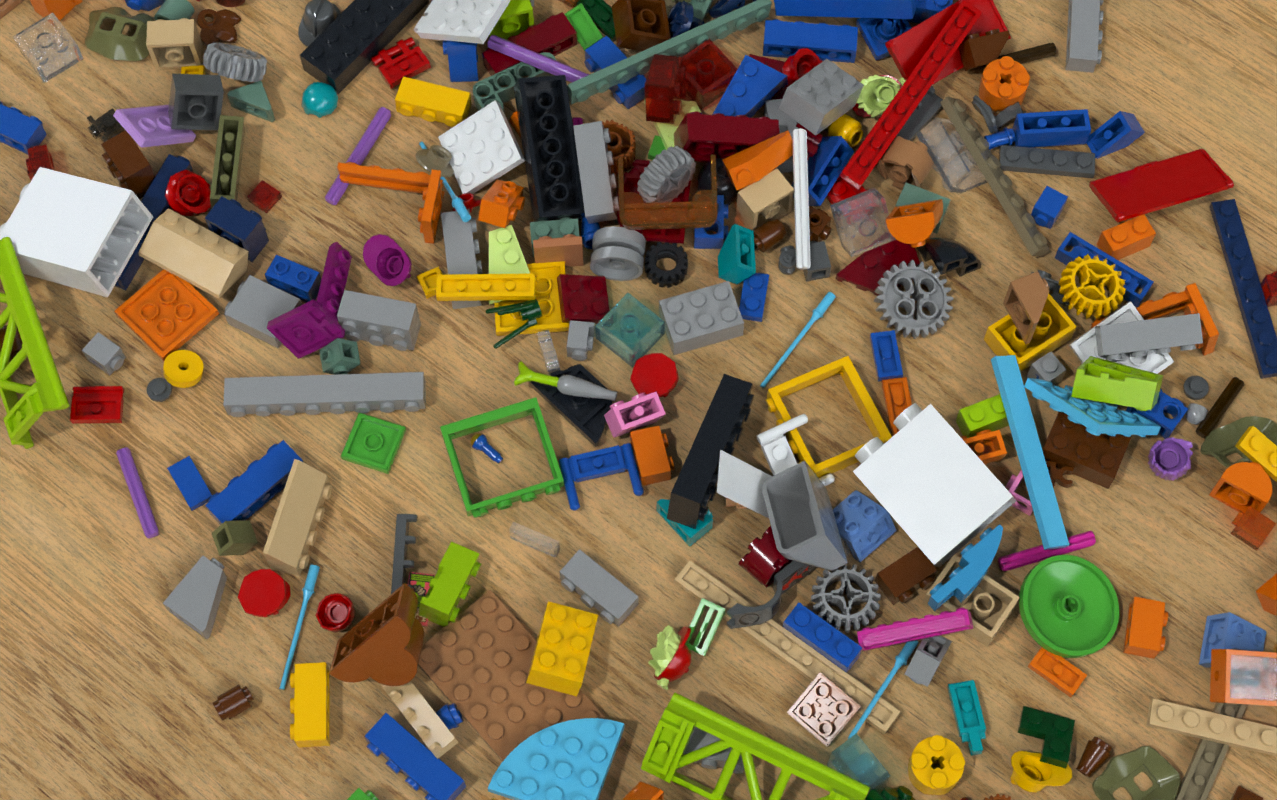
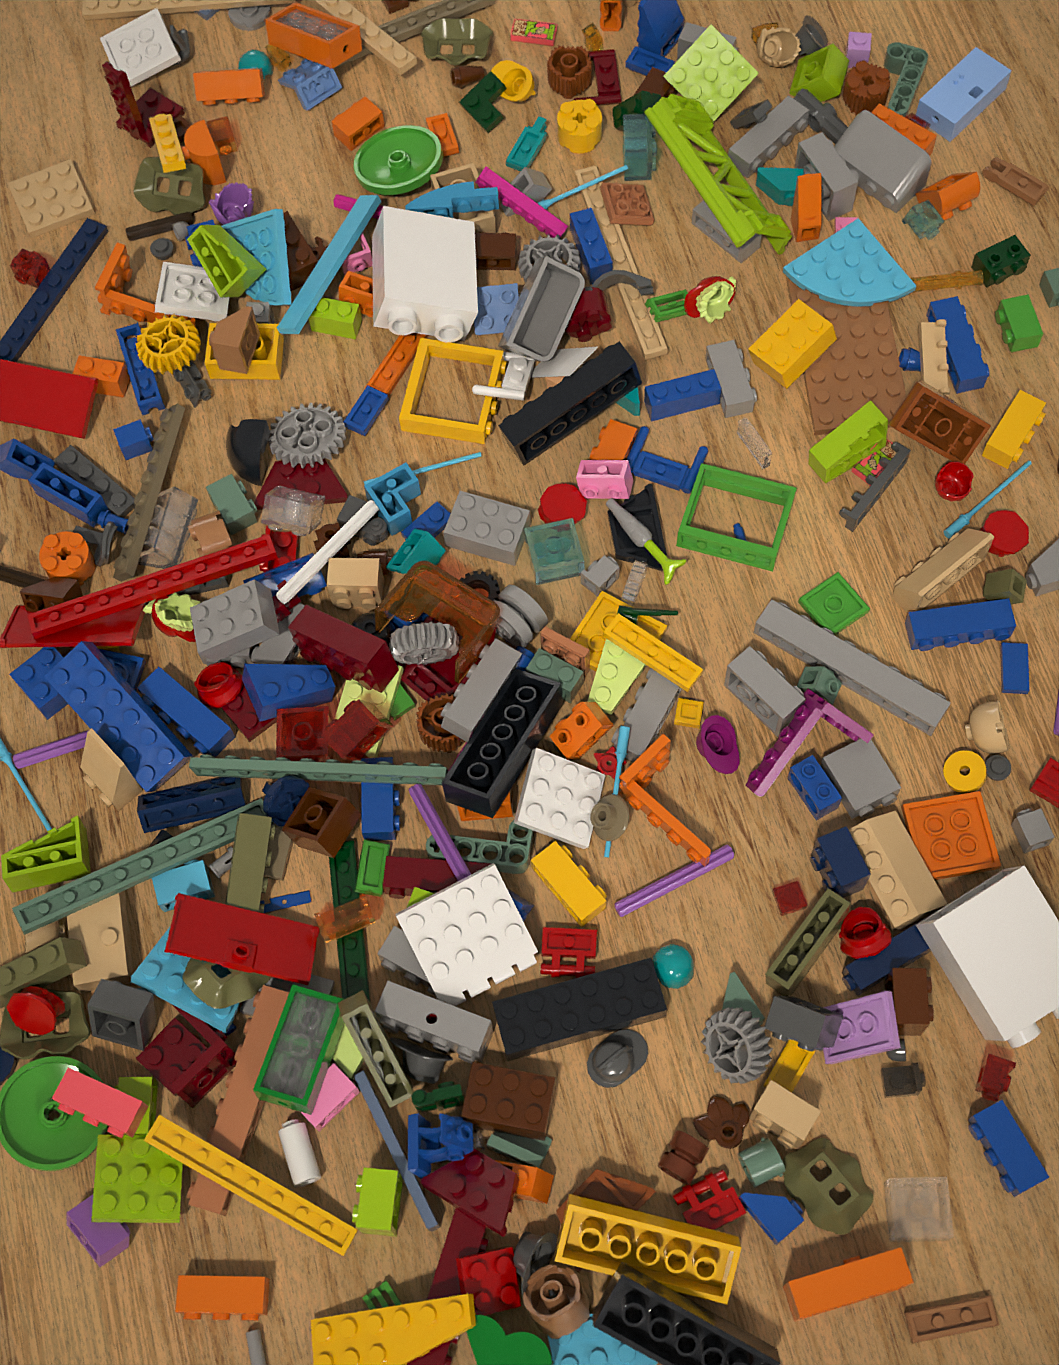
camera: 140 degrees left, 0 degrees up
(180, 409) = (988, 728): none -> tan cylinder
(582, 298) = (572, 606): dark red plate -> none
(629, 540) = (682, 395): none -> blue brick
(758, 160) = (344, 601): orange slope -> none
(798, 285) = (390, 495): none -> dark azure brick
(914, 222) = (252, 472): orange brick -> none
(1148, 335) = (166, 274): light grey brick -> none

